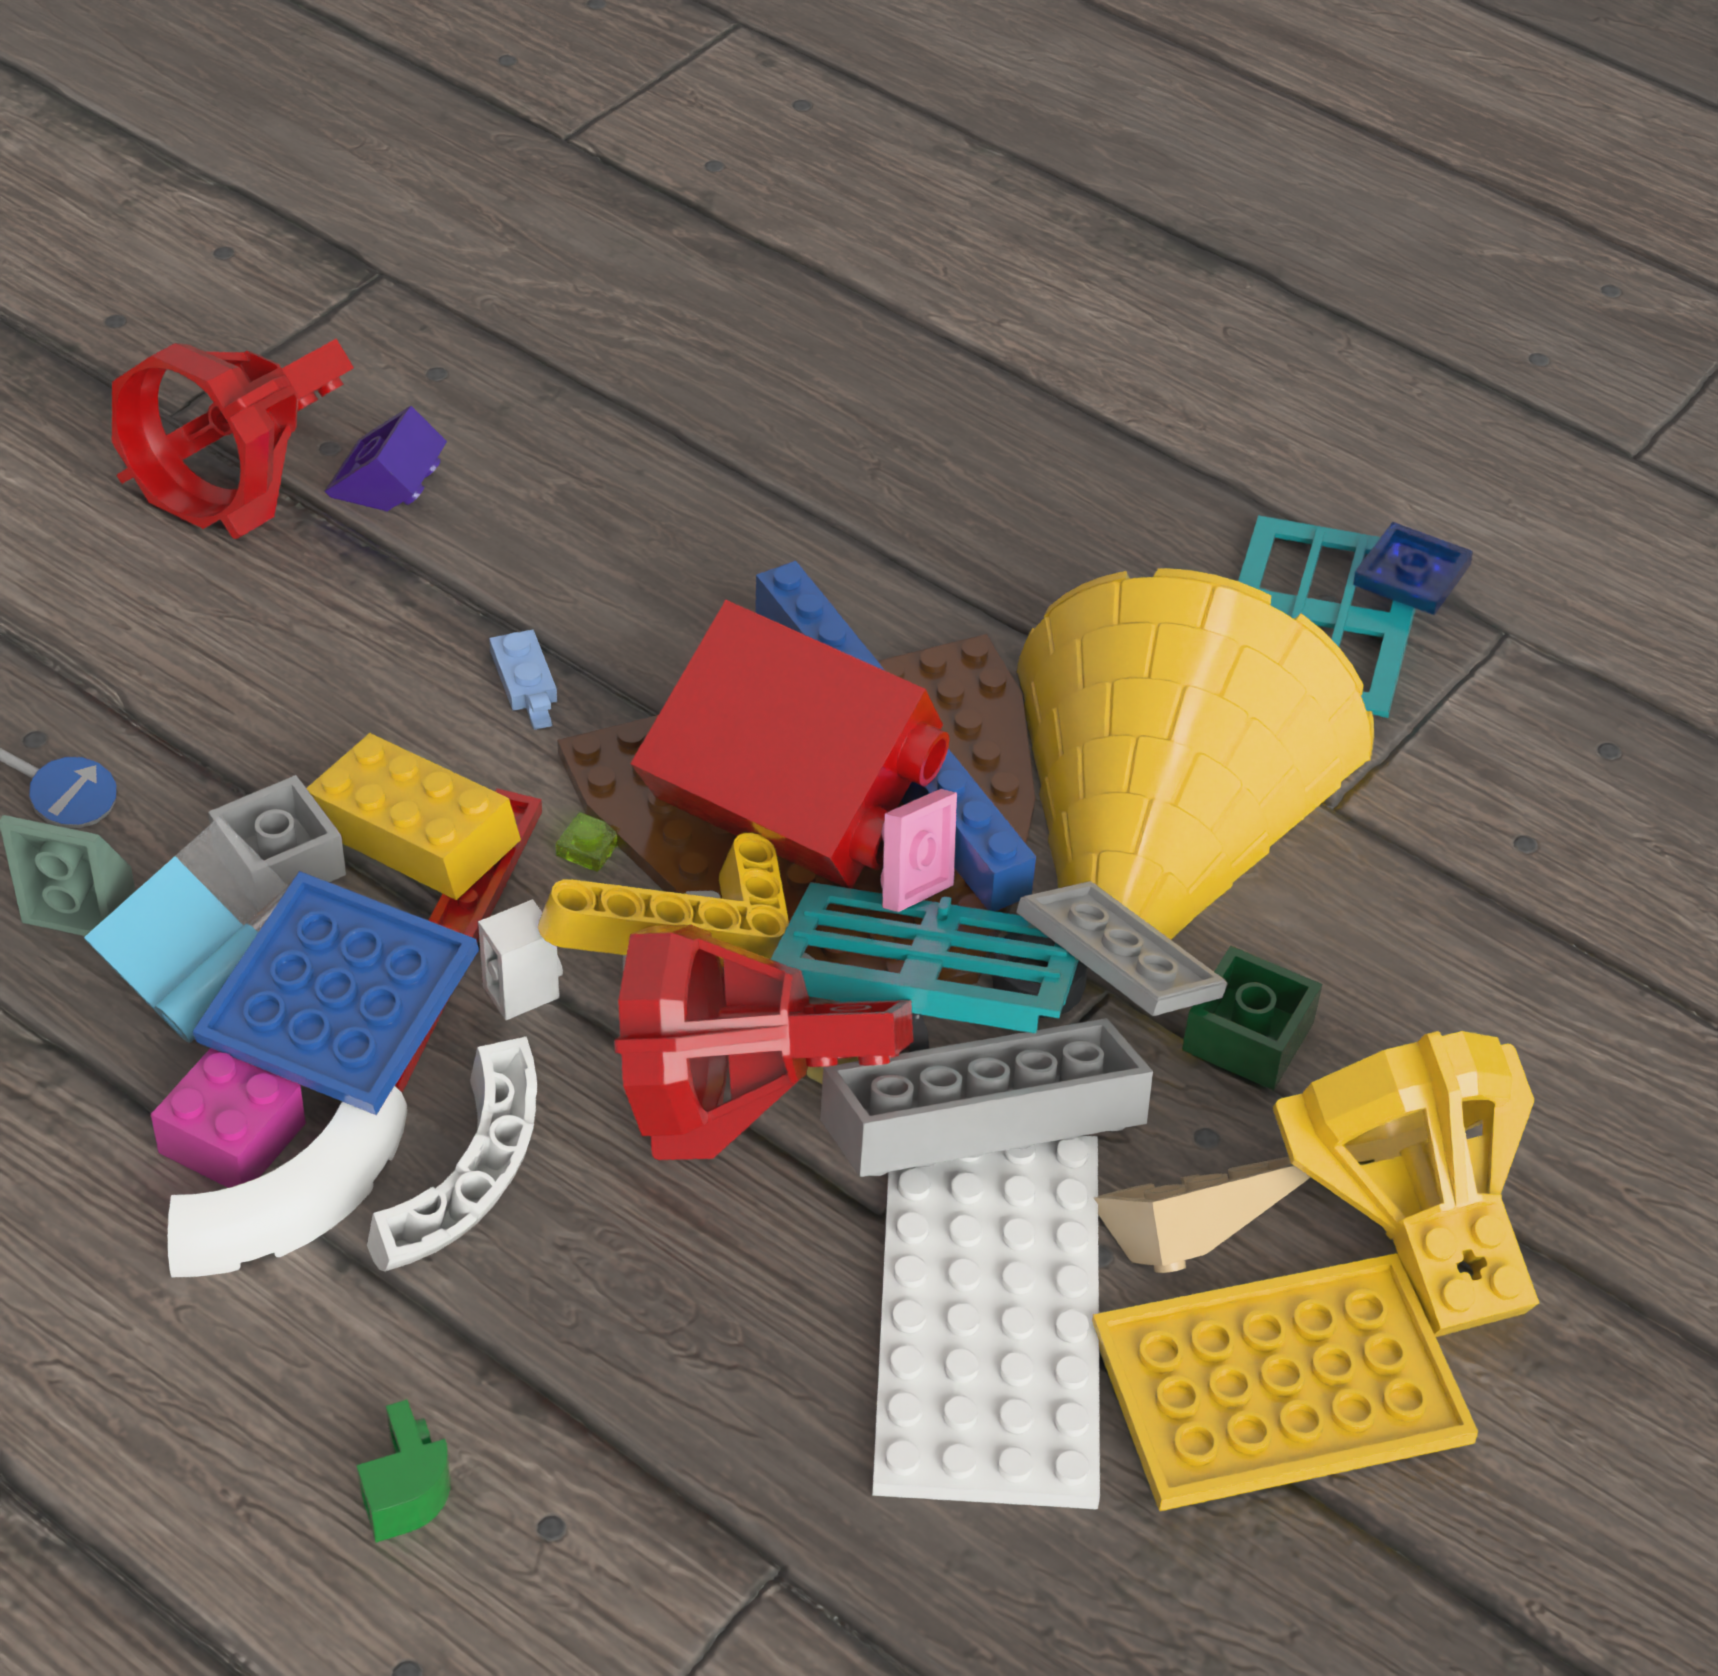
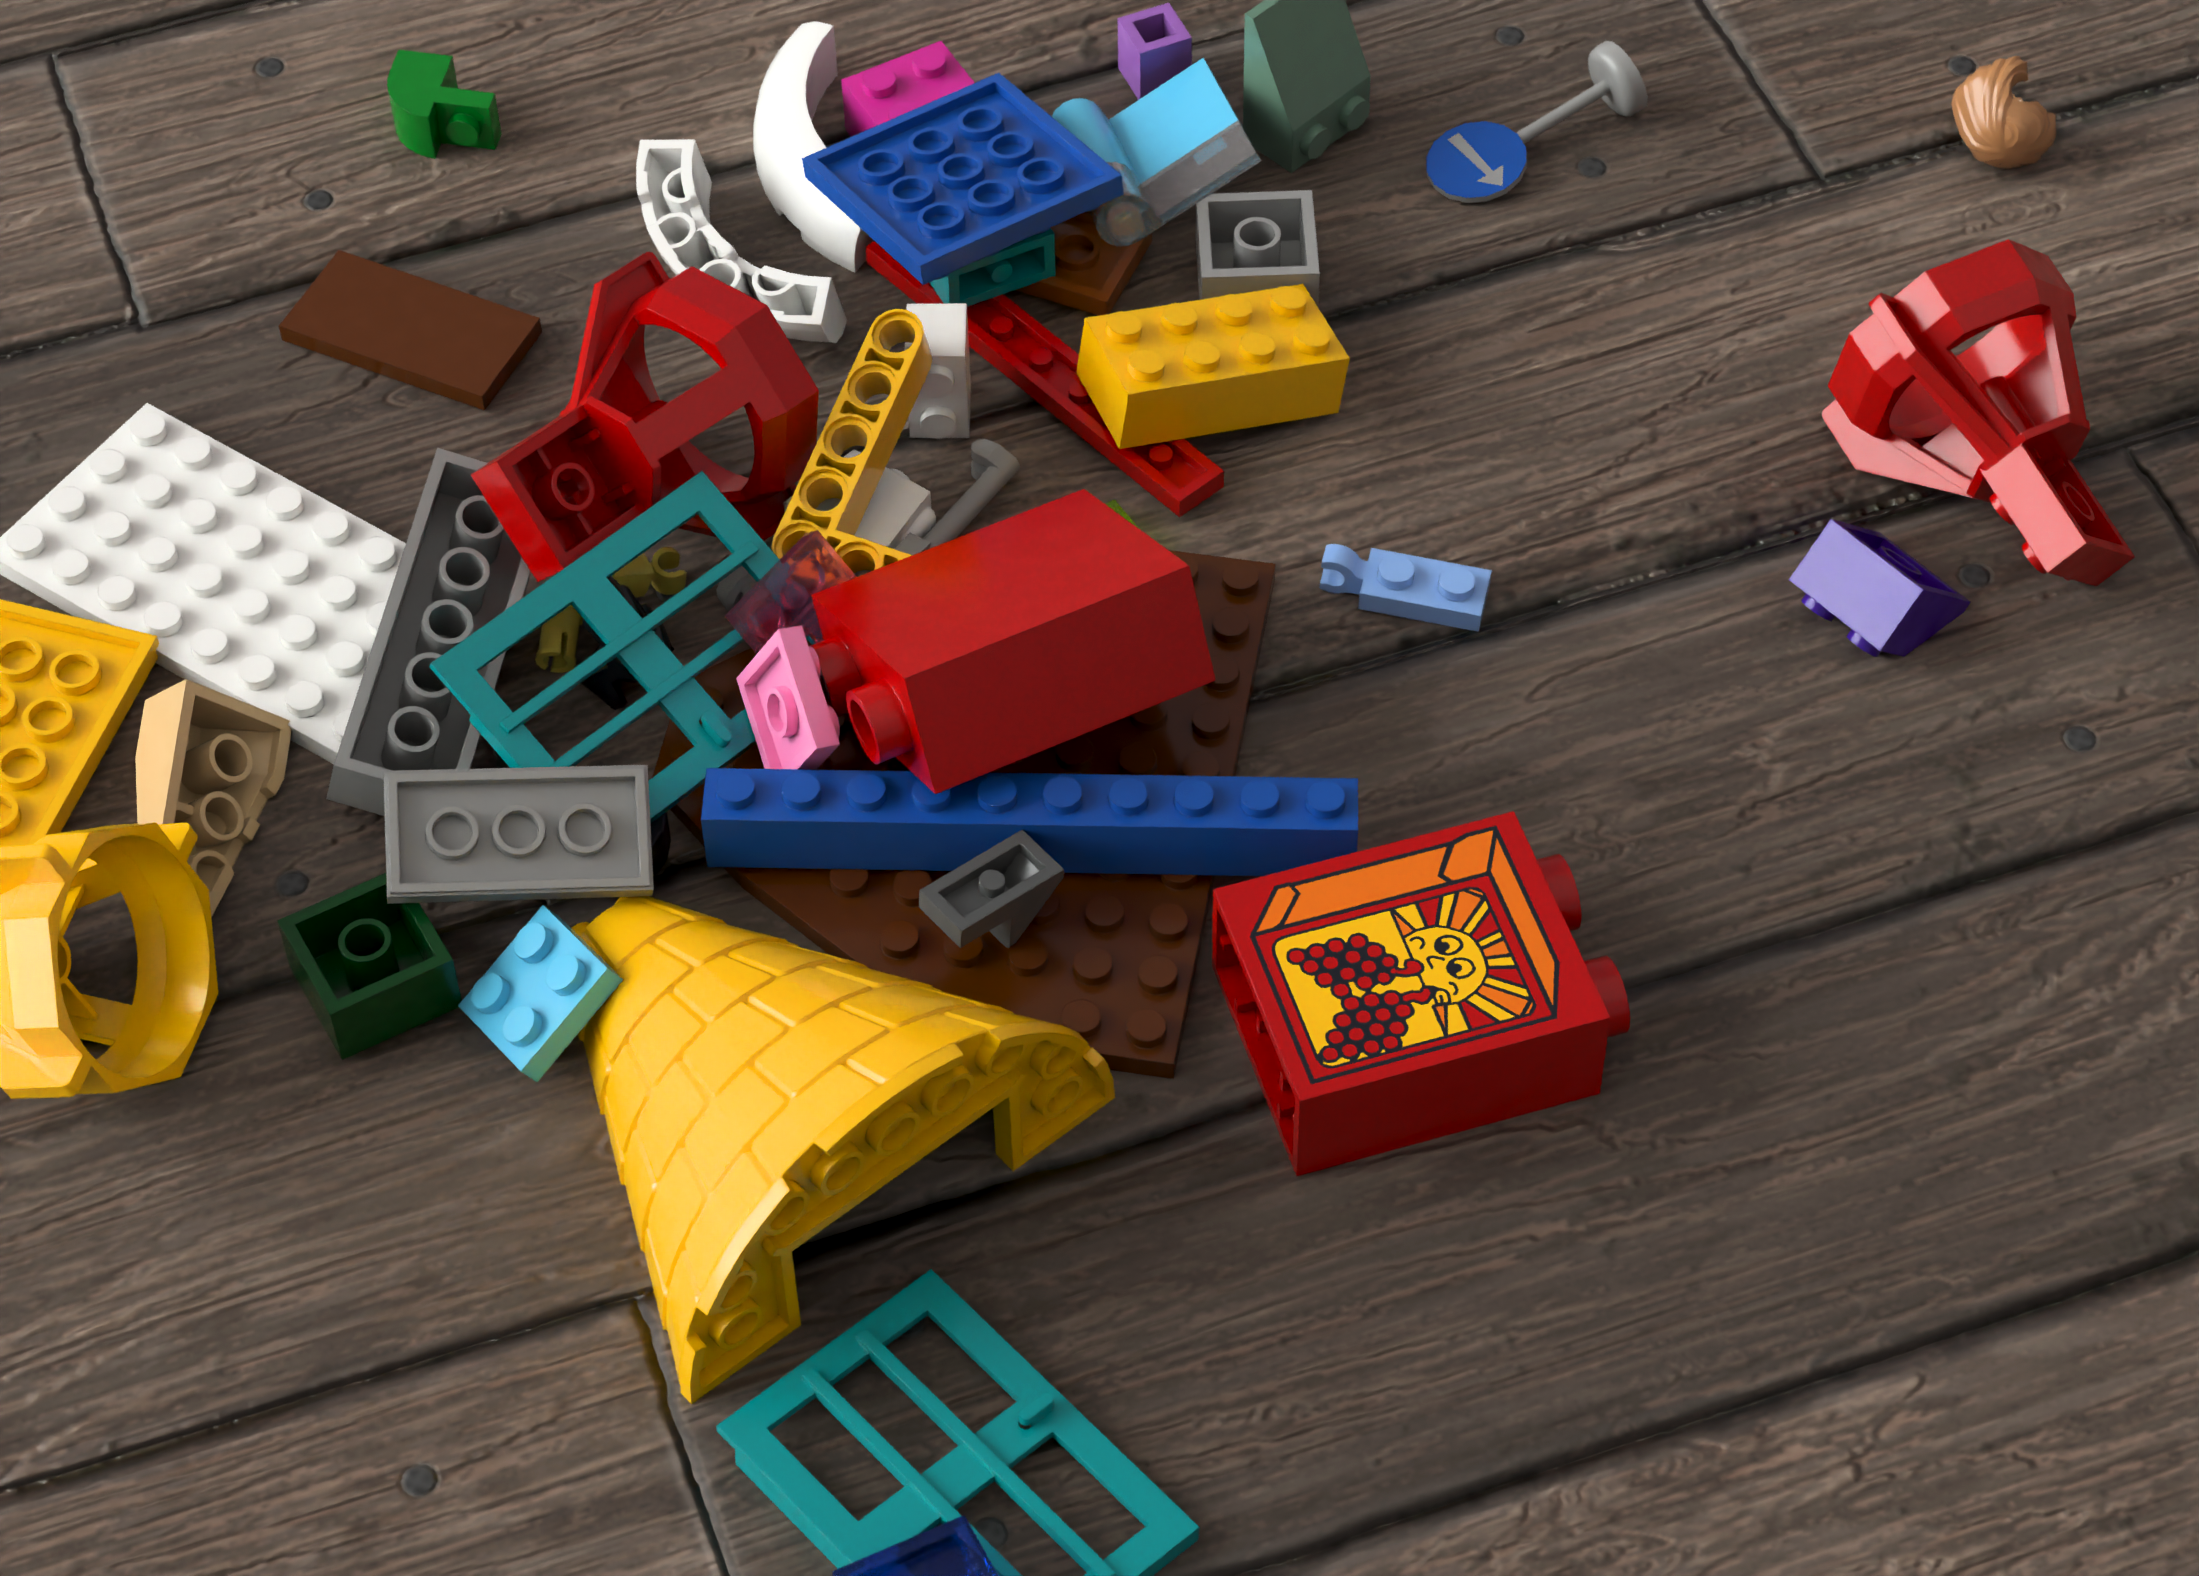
camera: 125 degrees right, 5 degrees up
(72, 994) = (1152, 48): none -> medium lavender brick
(664, 1359) = (411, 329): none -> reddish brown tile
(804, 887) = (785, 592): none -> clear pink plate
(875, 530) = (1414, 990): none -> brick
(971, 710) = (993, 892): none -> dark grey slope
(1201, 909) = (540, 993): none -> medium azure plate

